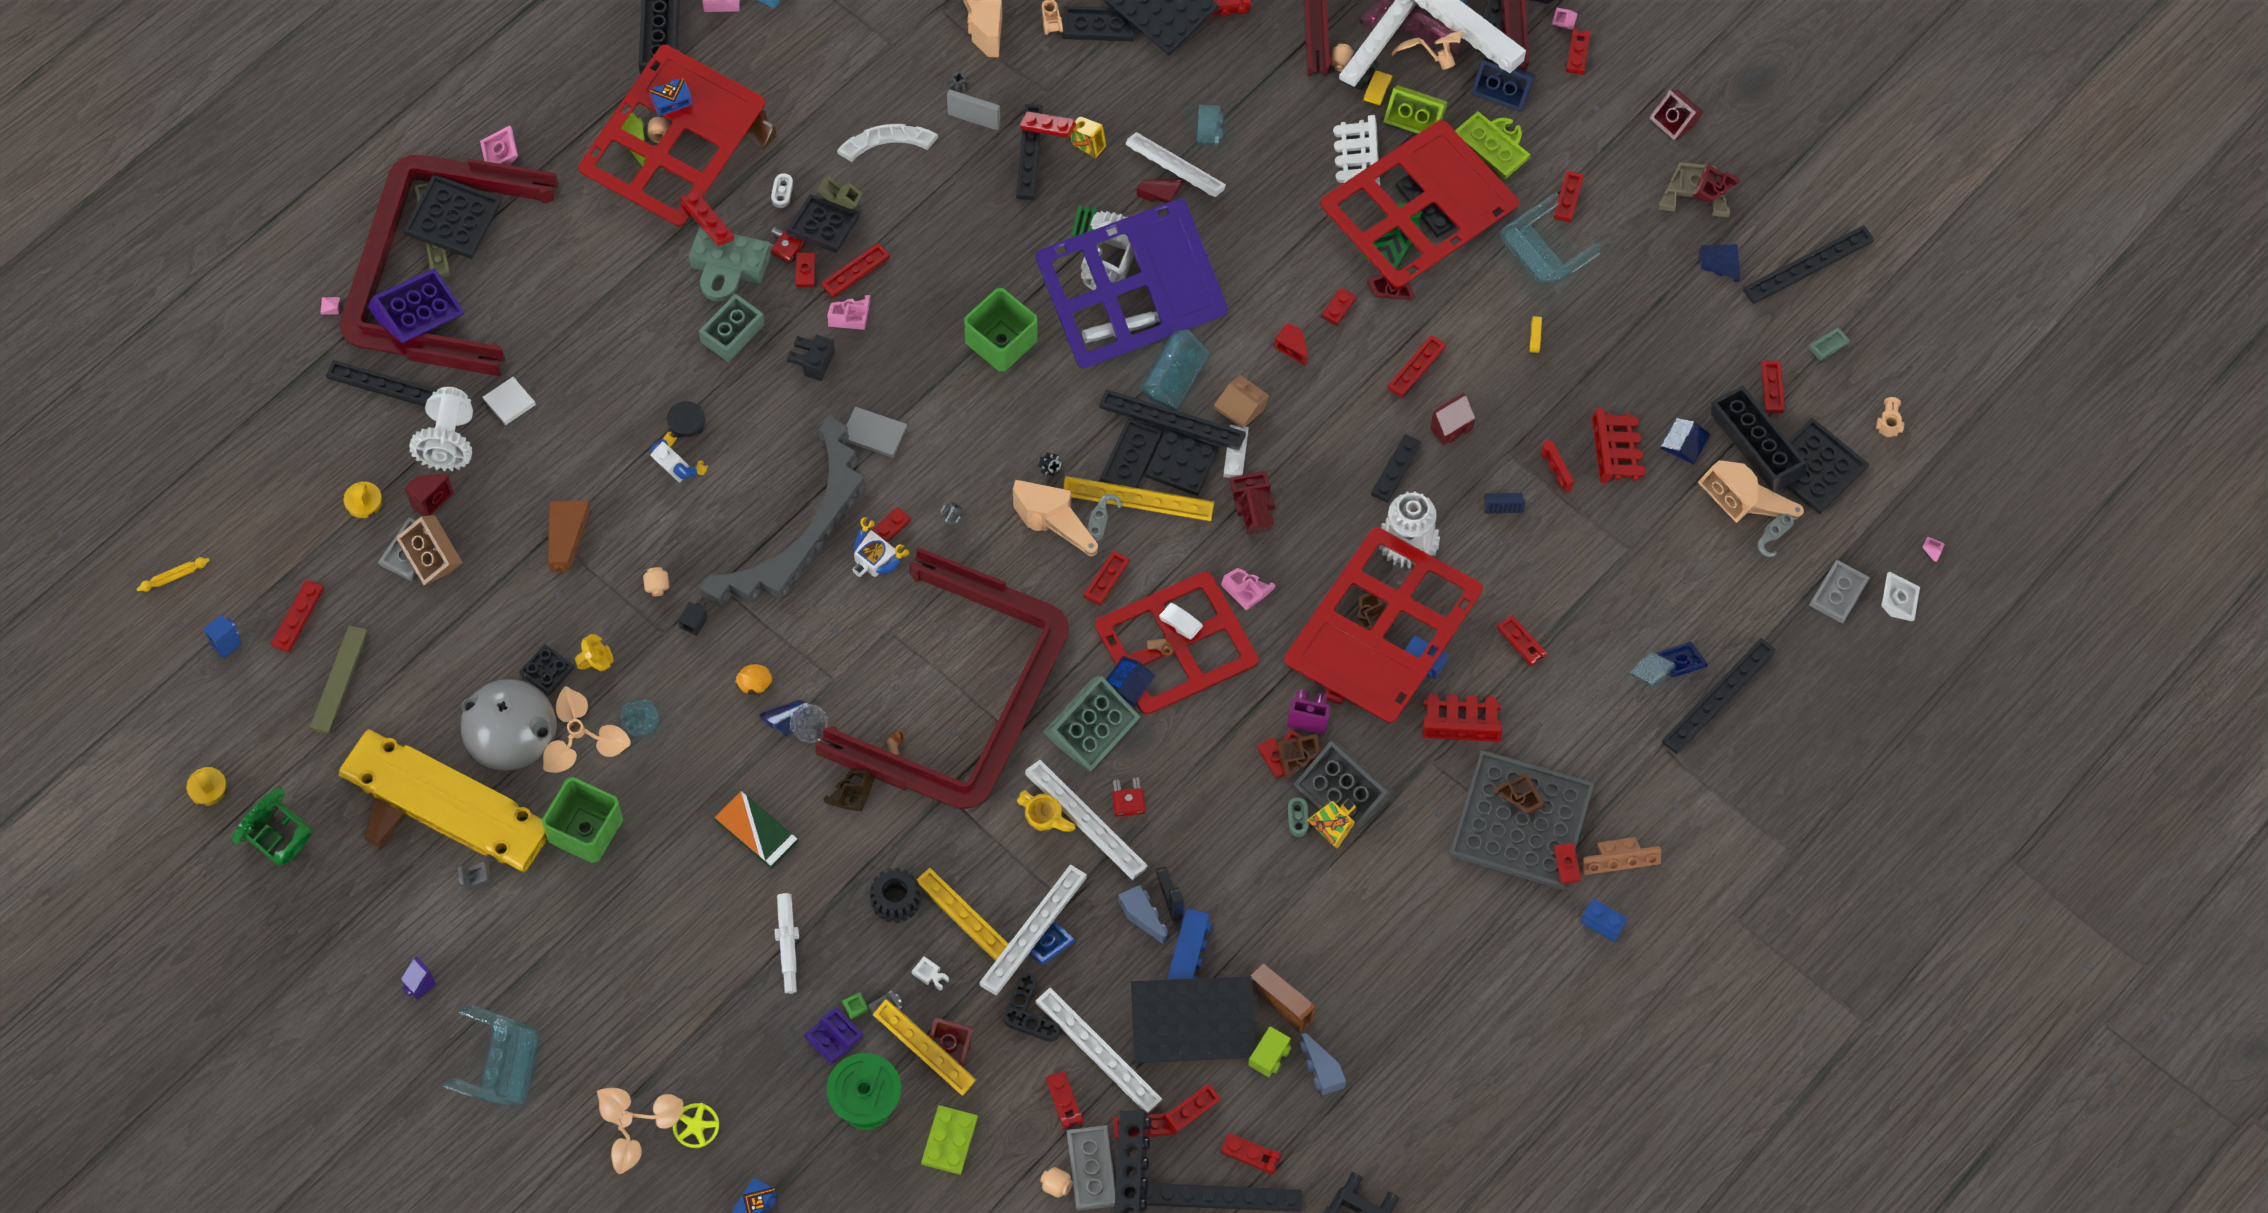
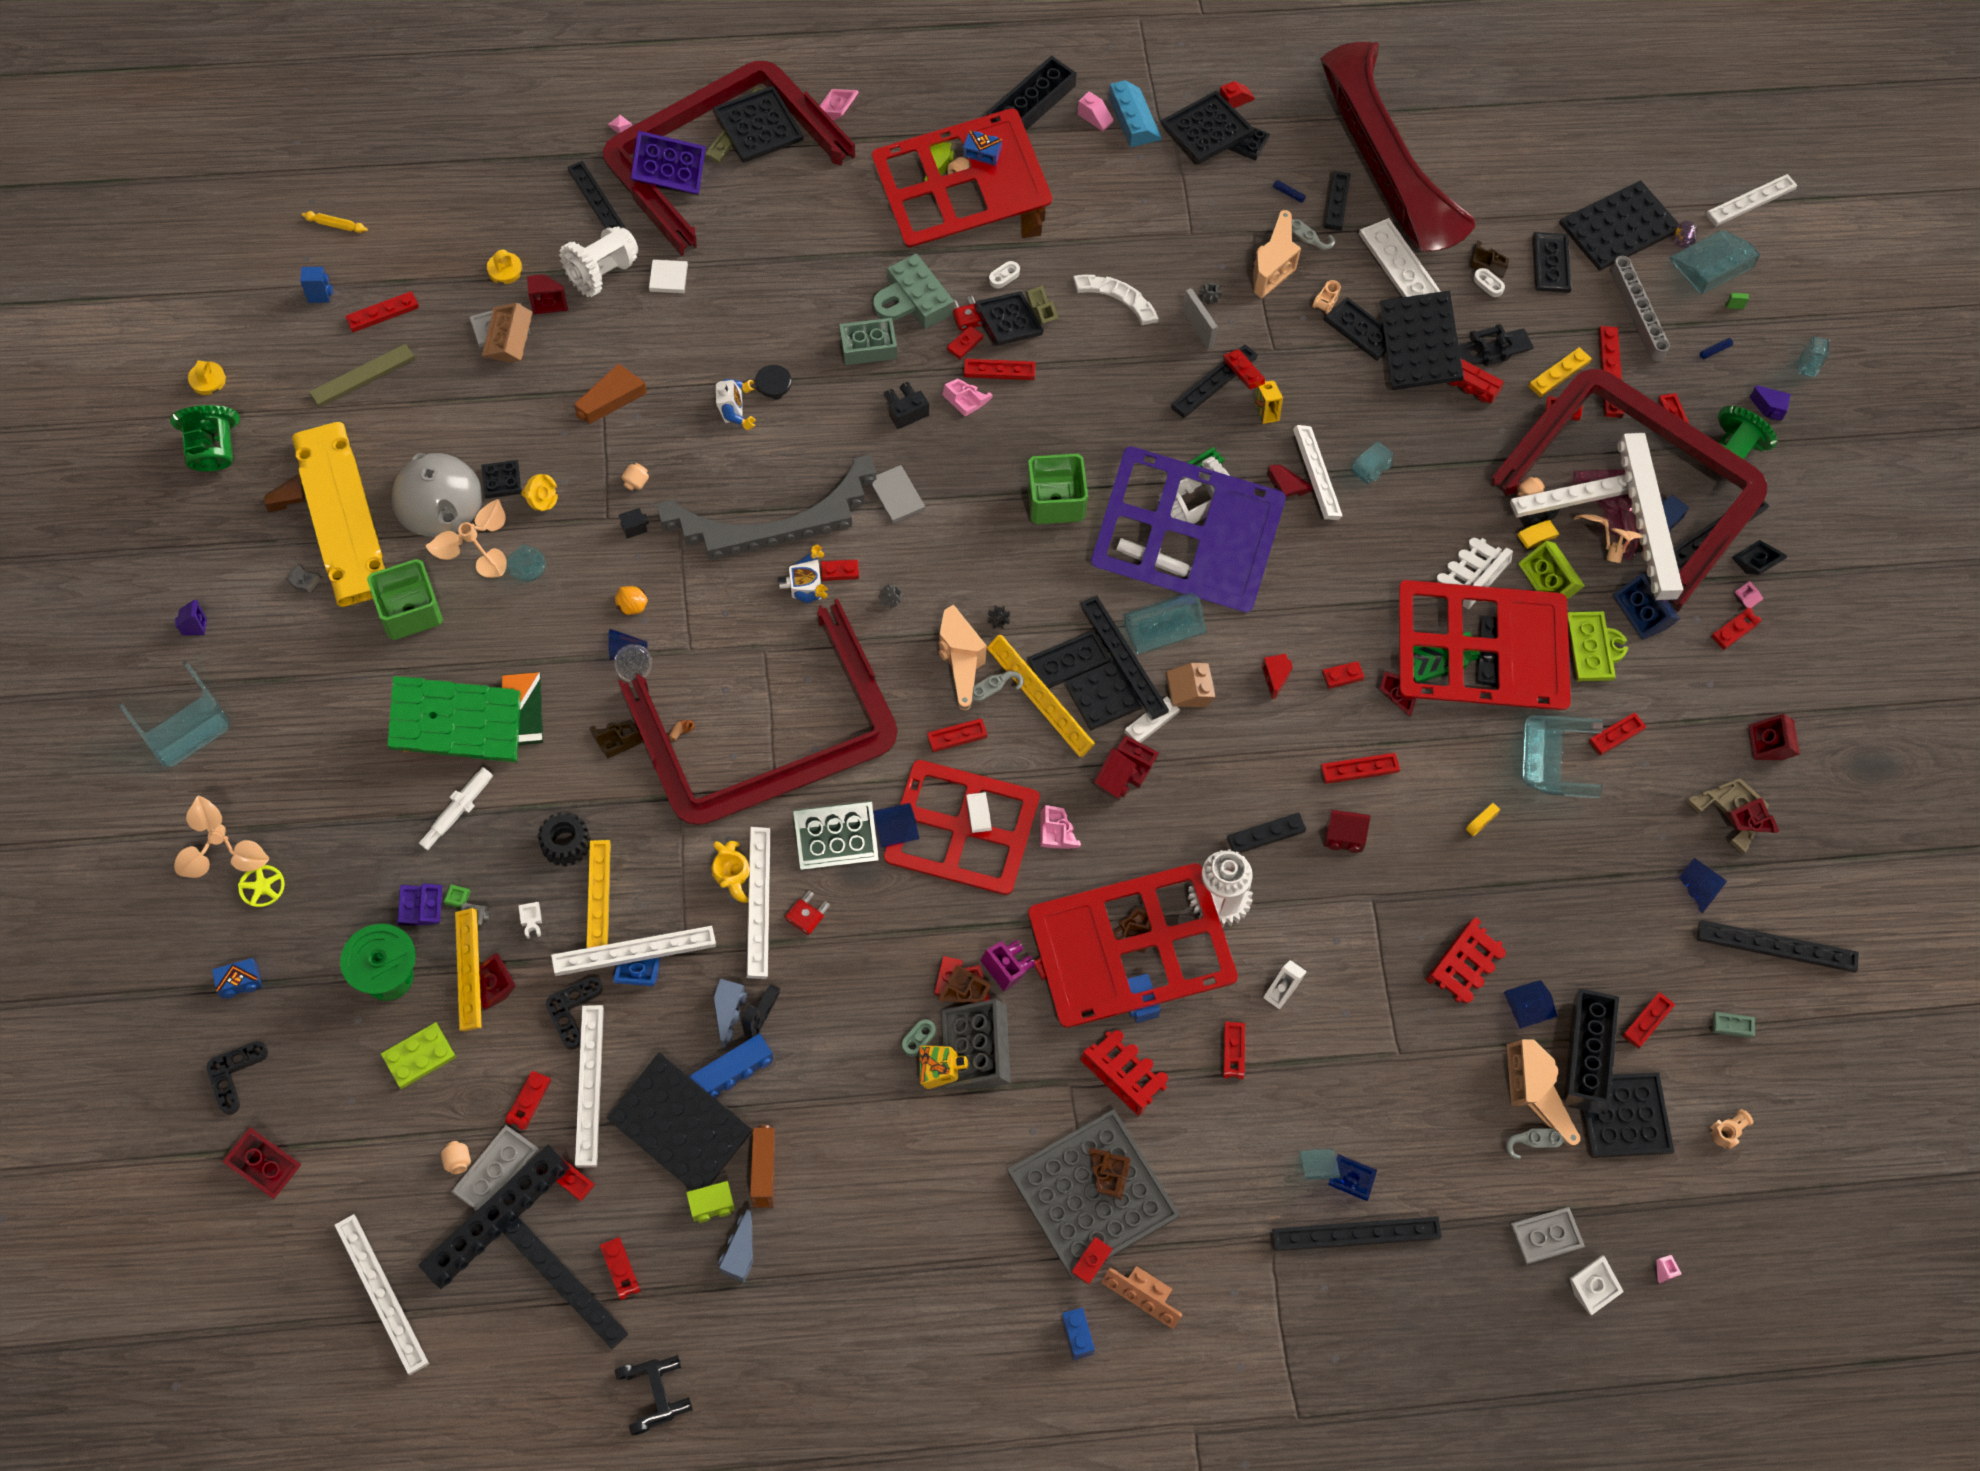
camera: 40 degrees right, 0 degrees up
(707, 218) = (925, 251): red plate -> none
(721, 877) = (454, 719): none -> green piece
(1162, 645) = (946, 819): arm -> none
(1191, 1108) = (609, 1192): red plate -> none
(1504, 503) = (1327, 930): dark blue panel -> none
(1512, 565) = (1284, 984): none -> white slope
(1557, 465) = (1399, 935): red plate -> none

